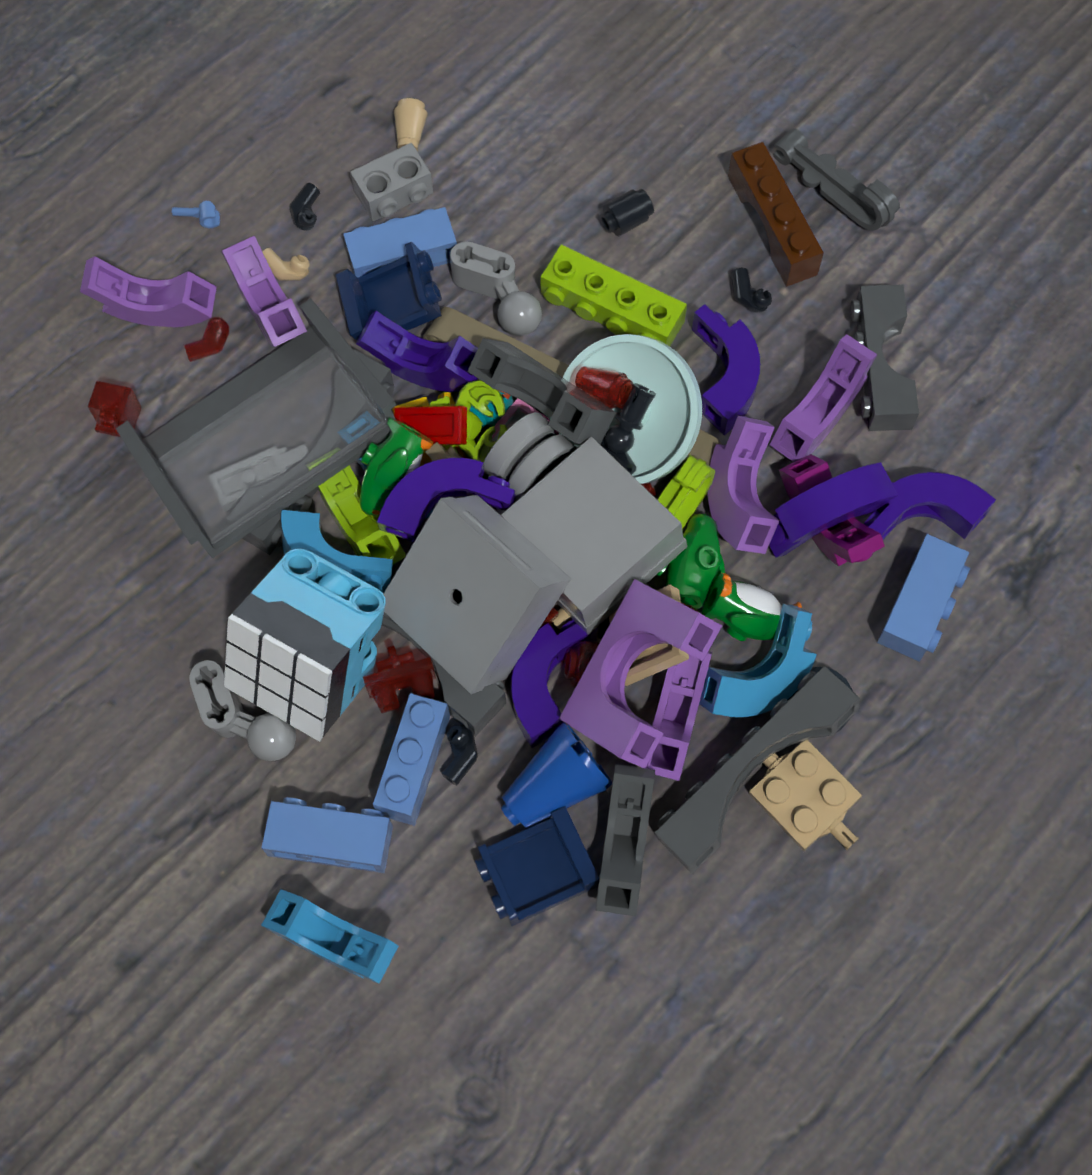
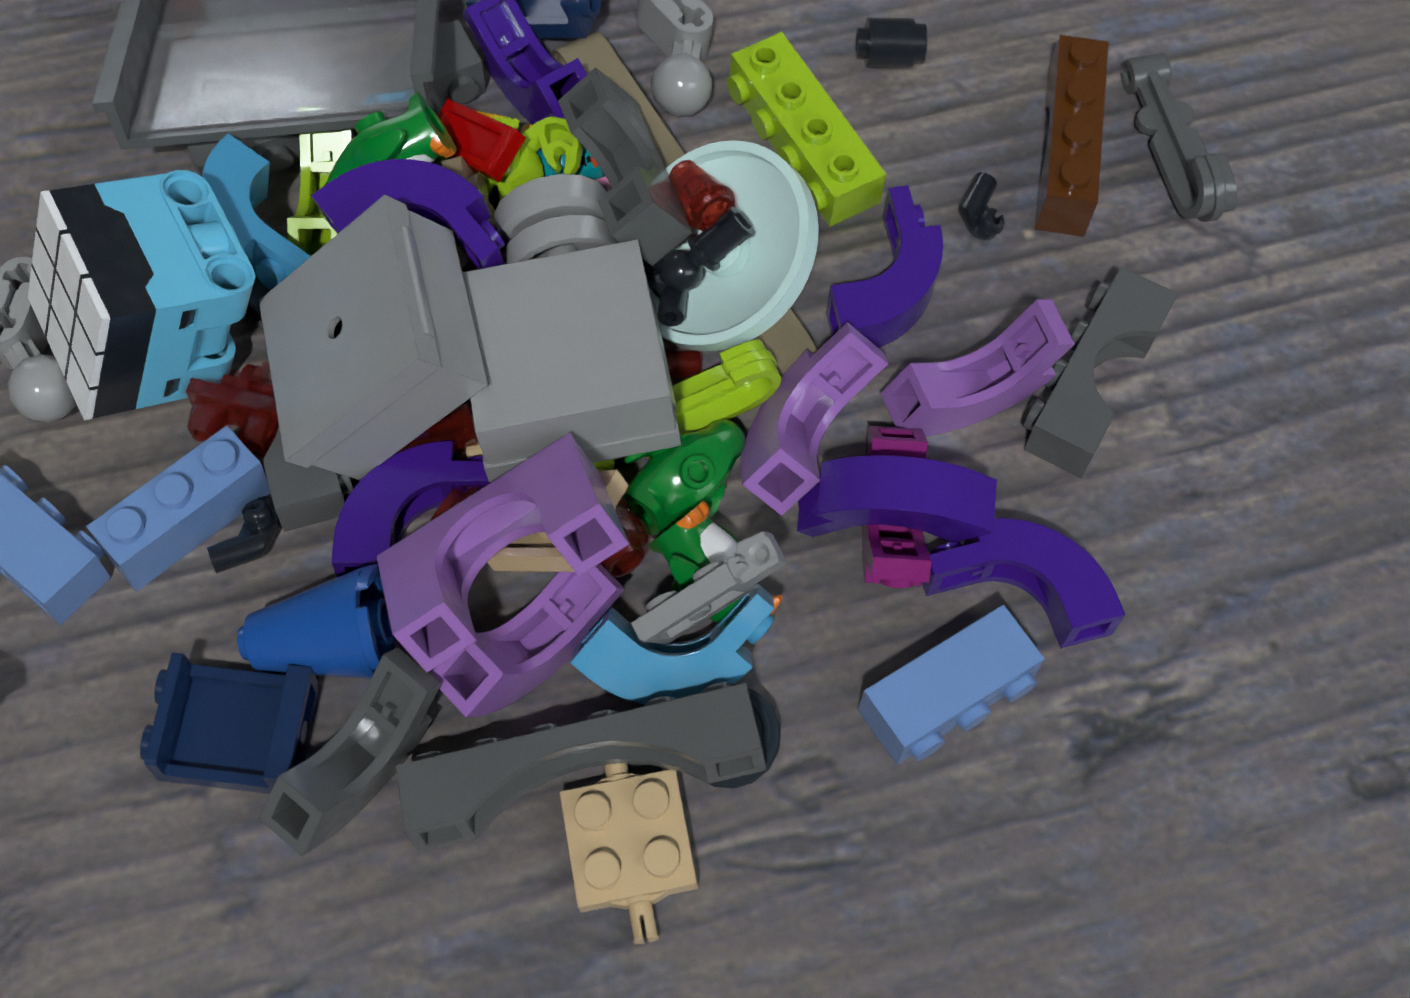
camera: 25 degrees right, 5 degrees down
(770, 620) = (713, 590): none -> light grey hinge

